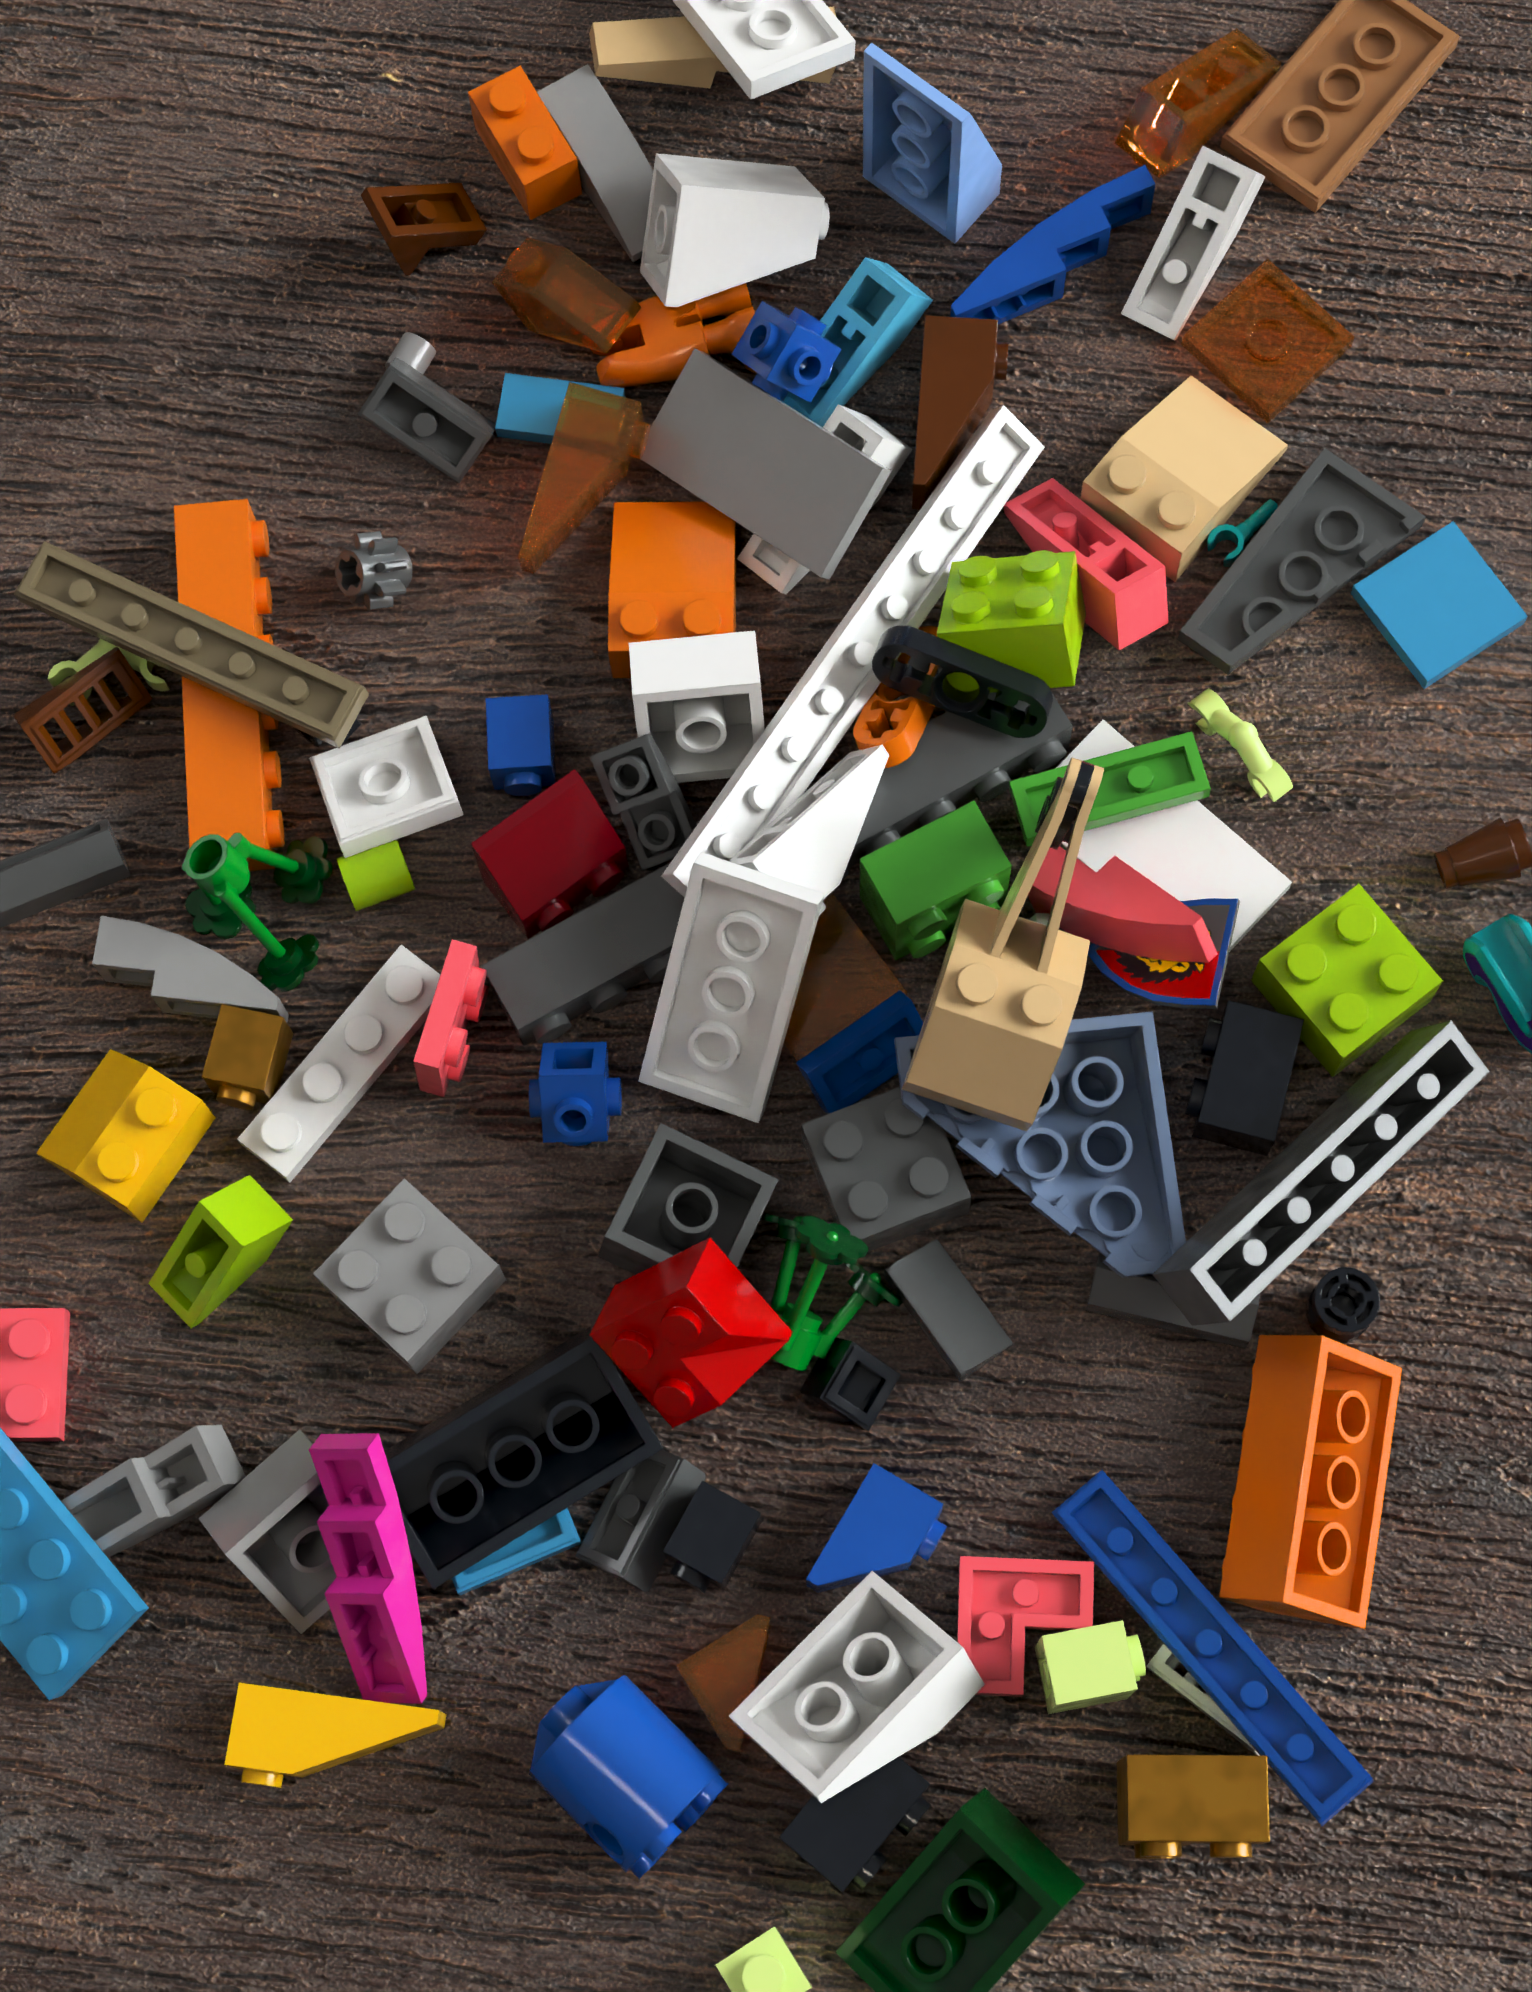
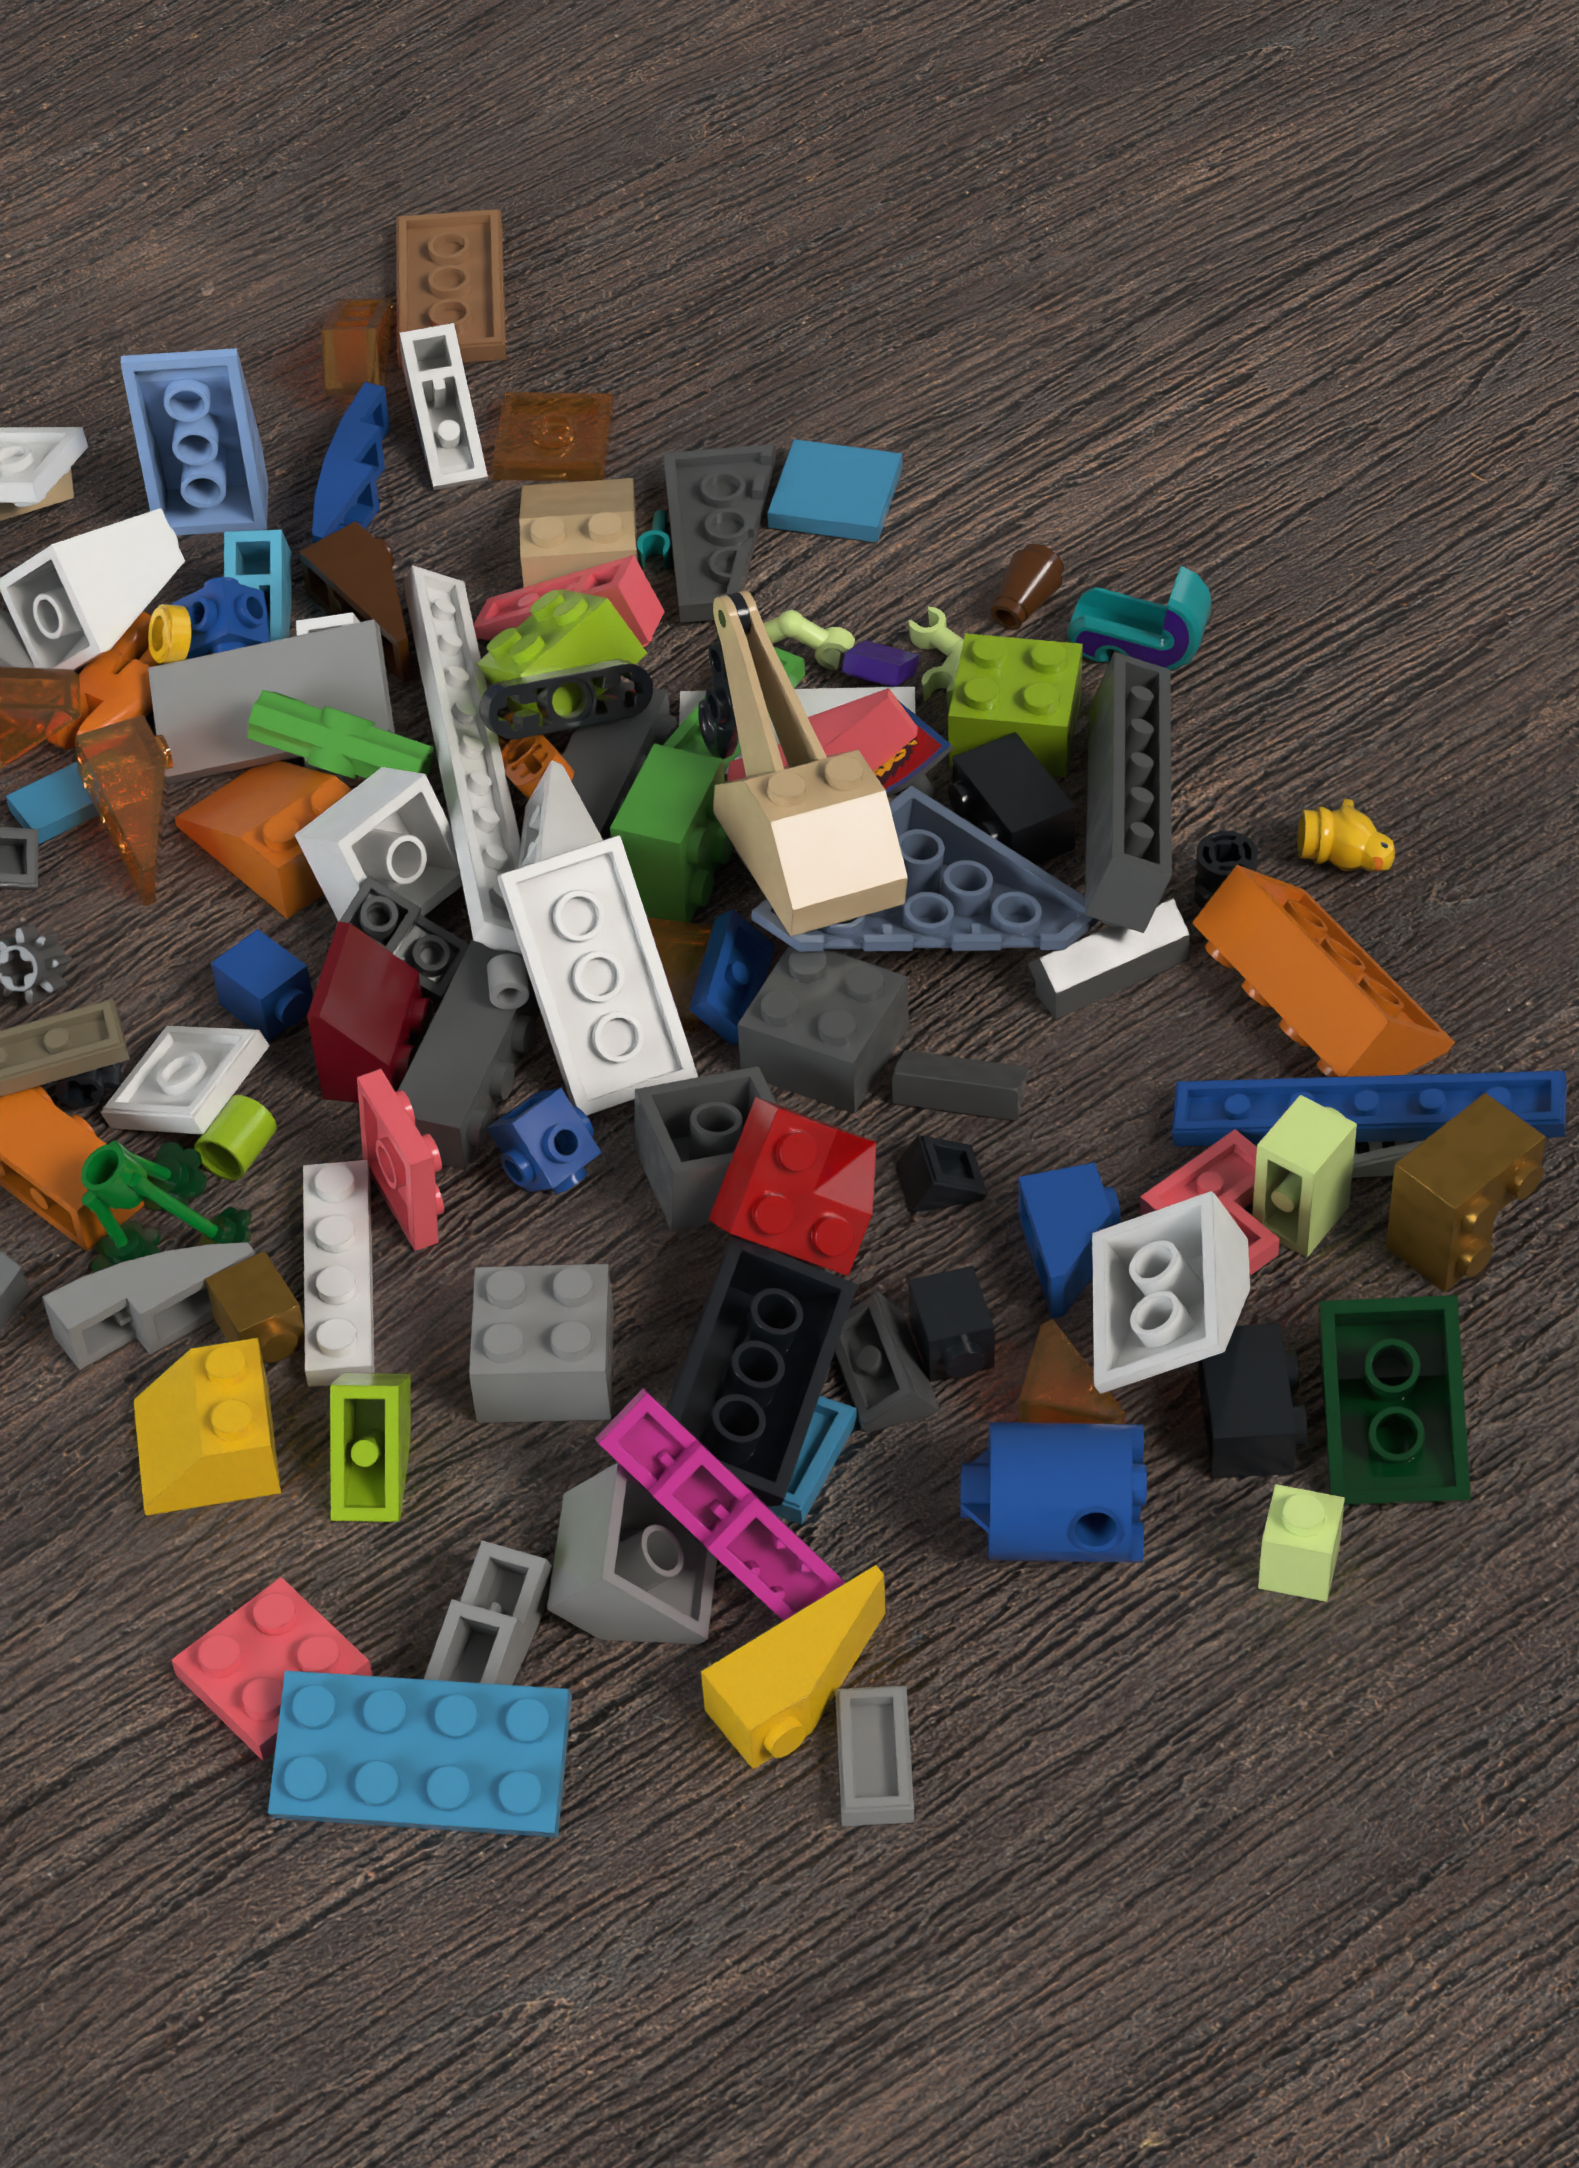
camera: 45 degrees left, 25 degrees down
(318, 1843) = (874, 1756): none -> light grey tile
(663, 924) = (507, 981): none -> light grey piece
(730, 333) = (169, 633): none -> yellow tile
(767, 560) = (333, 738): none -> bright green piece
(831, 1246) = (887, 1096): plant -> none
(1288, 832) = (880, 663): none -> dark purple tile
(1369, 864) = (947, 642): none -> yellowish green arm
(1475, 1357) = (1344, 839): none -> yellow animal

